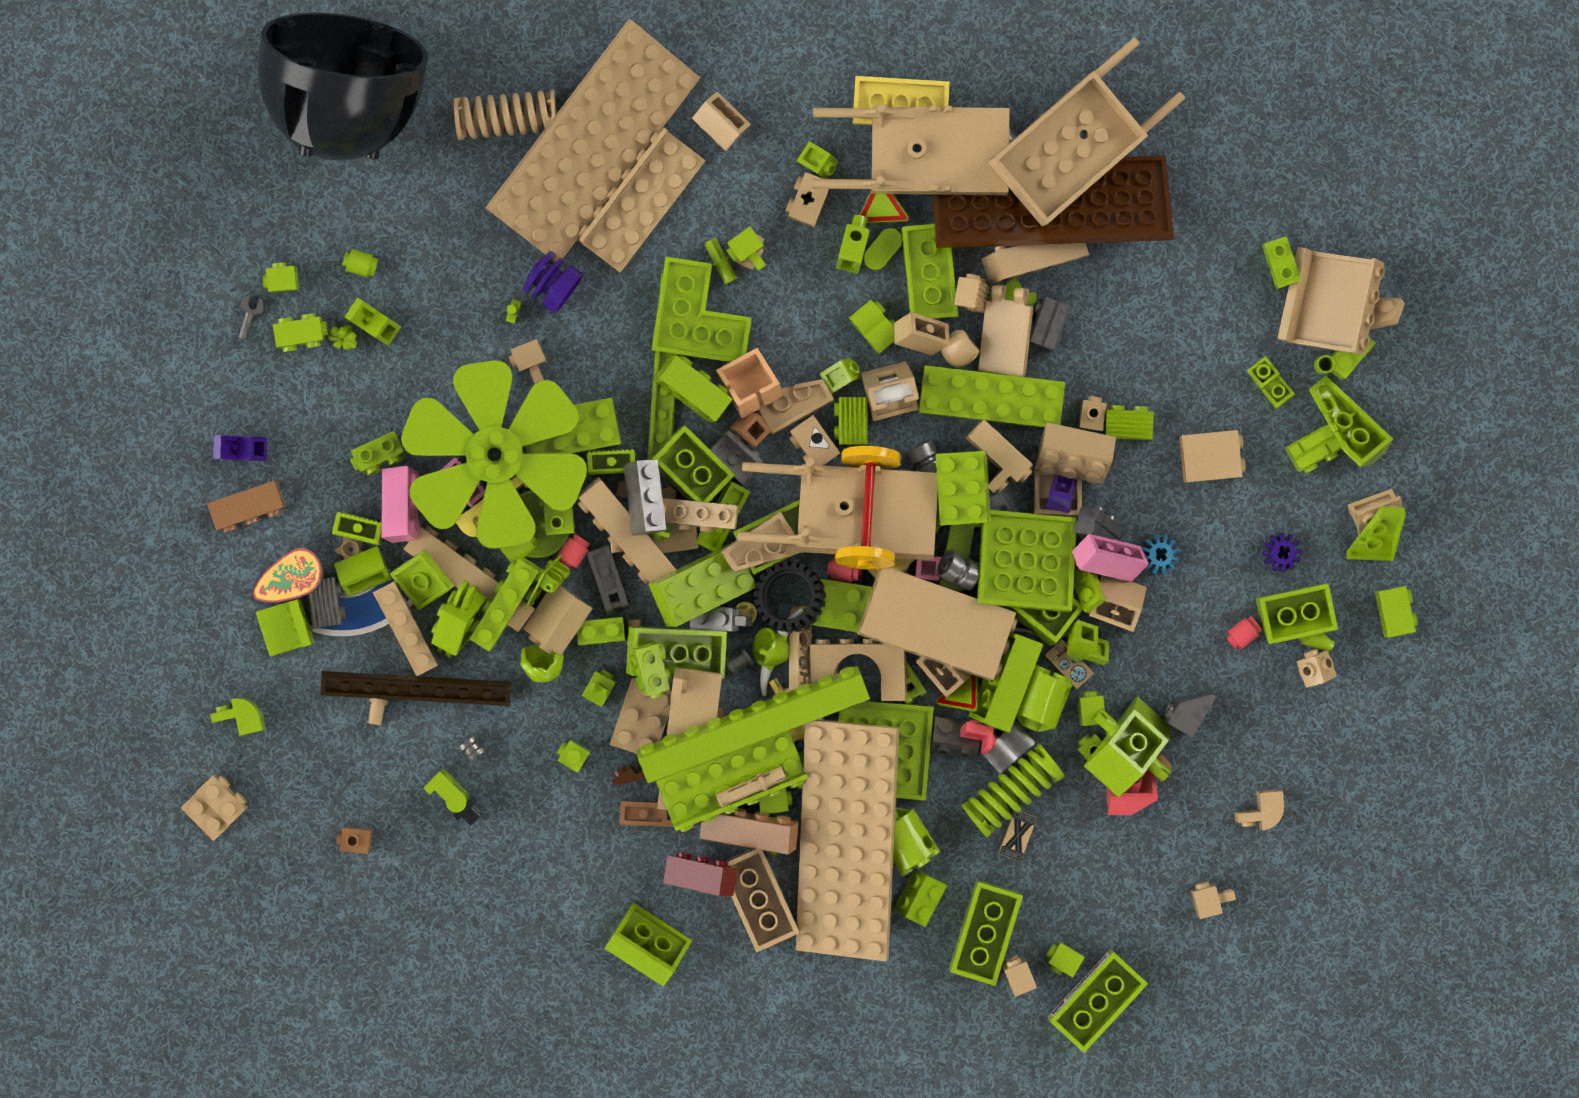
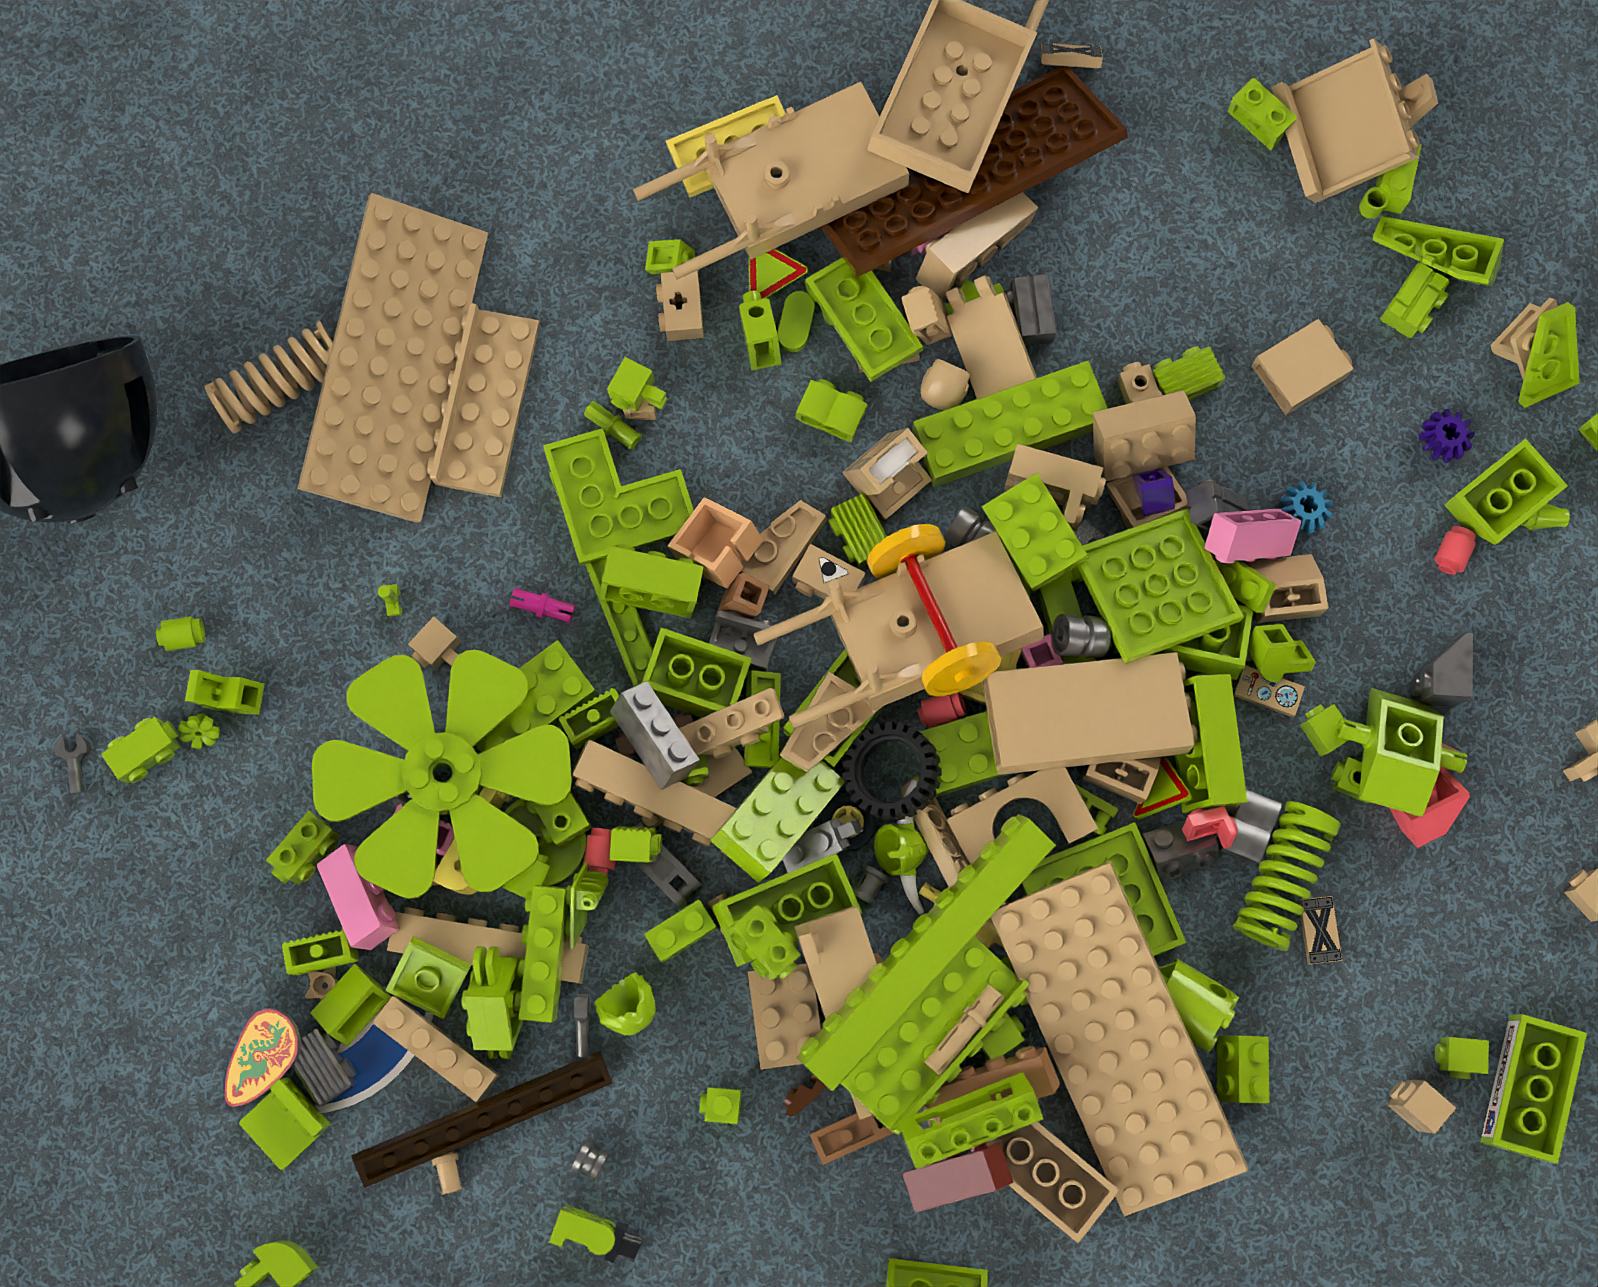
camera: 25 degrees left, 10 degrees down
(240, 448) = (127, 927): dark purple brick -> none
(247, 506) = (169, 995): medium nougat brick -> none
(281, 278) = (92, 697): lime brick -> none
(507, 659) = (582, 1015): none -> flat silver bar
(552, 282) = (416, 540): dark purple wheel -> none
(556, 620) = (619, 943): tan brick -> none
(598, 561) = (635, 844): none -> lime brick
(599, 687) = (713, 1003): lime brick -> none
(613, 365) = (542, 605): none -> dark pink pin
(721, 121) = (534, 265): tan brick -> none
(725, 845) = (970, 1120): none -> lime brick
(840, 374) = (819, 485): lime bracket -> none
(921, 333) = (890, 387): tan brick -> none
(985, 932) = (1349, 1072): lime brick -> none
(1043, 700) = (1266, 745): lime cylinder -> none
(1172, 151) = (1071, 55): none -> tan tile
(1270, 382) = (1322, 254): lime slope -> none
(1316, 668) = (1564, 547): tan brick -> none

